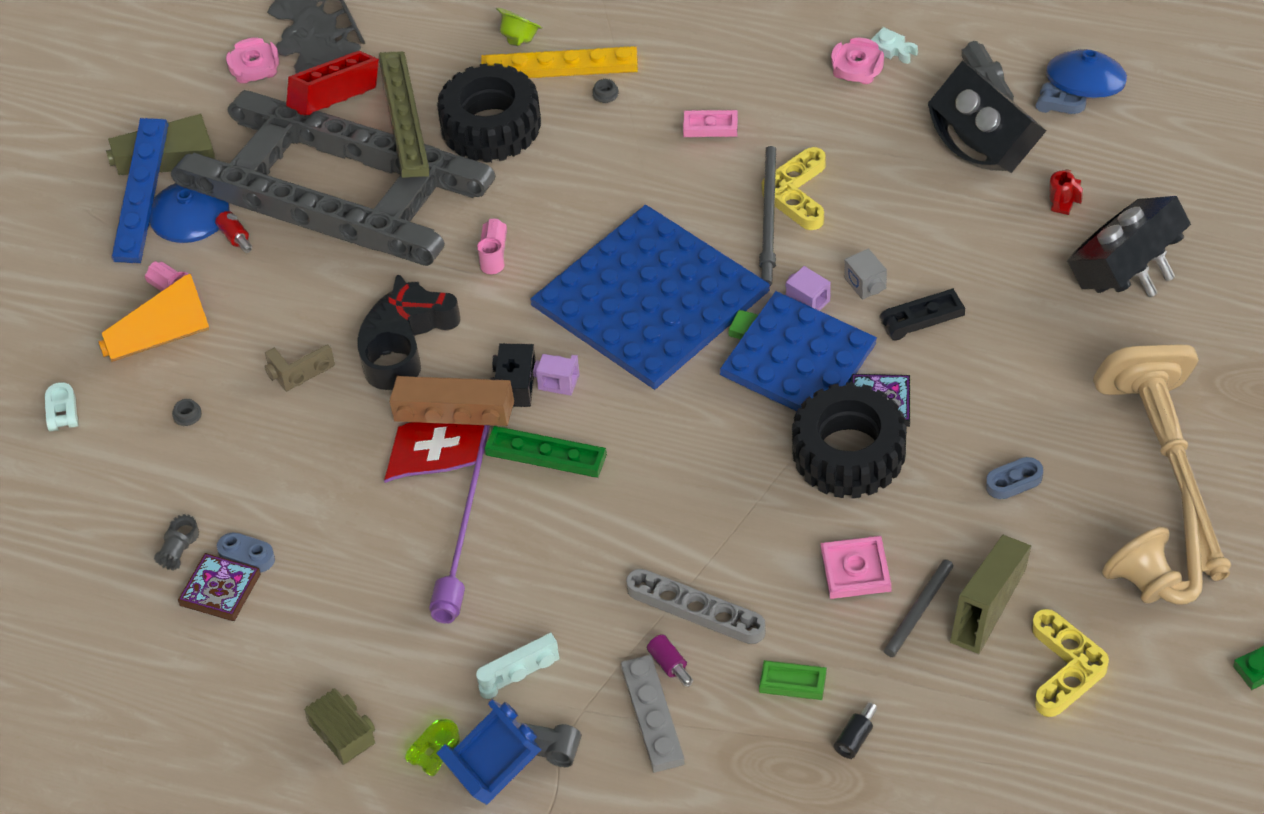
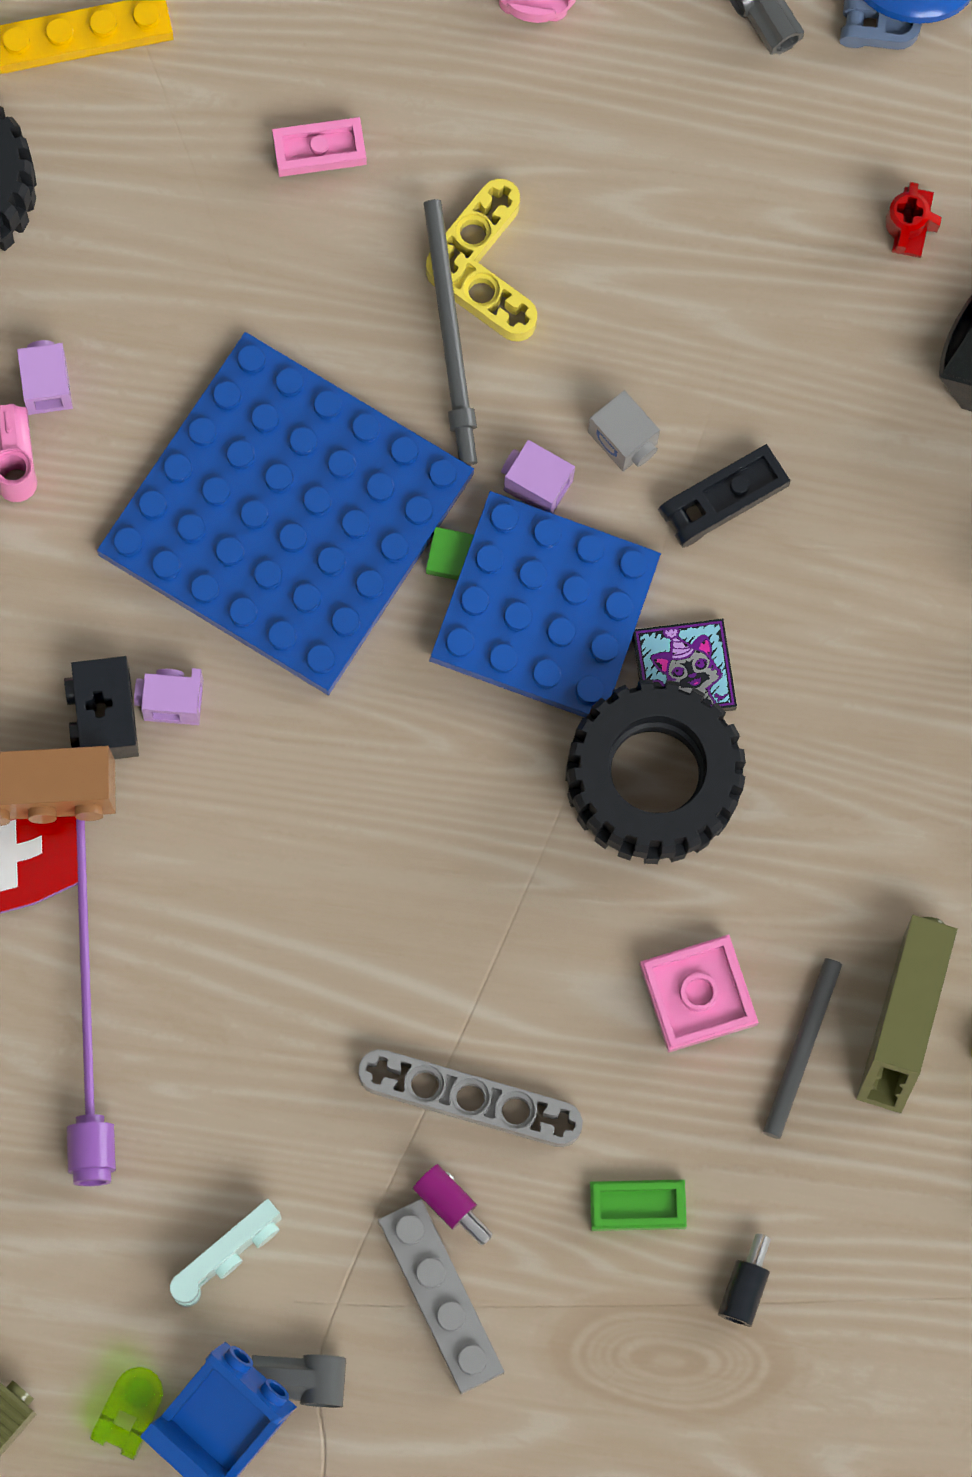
camera: 20 degrees left, 25 degrees up
(521, 213) = (44, 377): none -> lavender brick
(545, 451) = (184, 849): green plate -> none
(605, 91) = (130, 85): dark grey plate -> none
(983, 120) = (768, 101): black piece -> none
(1012, 478) = (909, 794): sand blue plate -> none

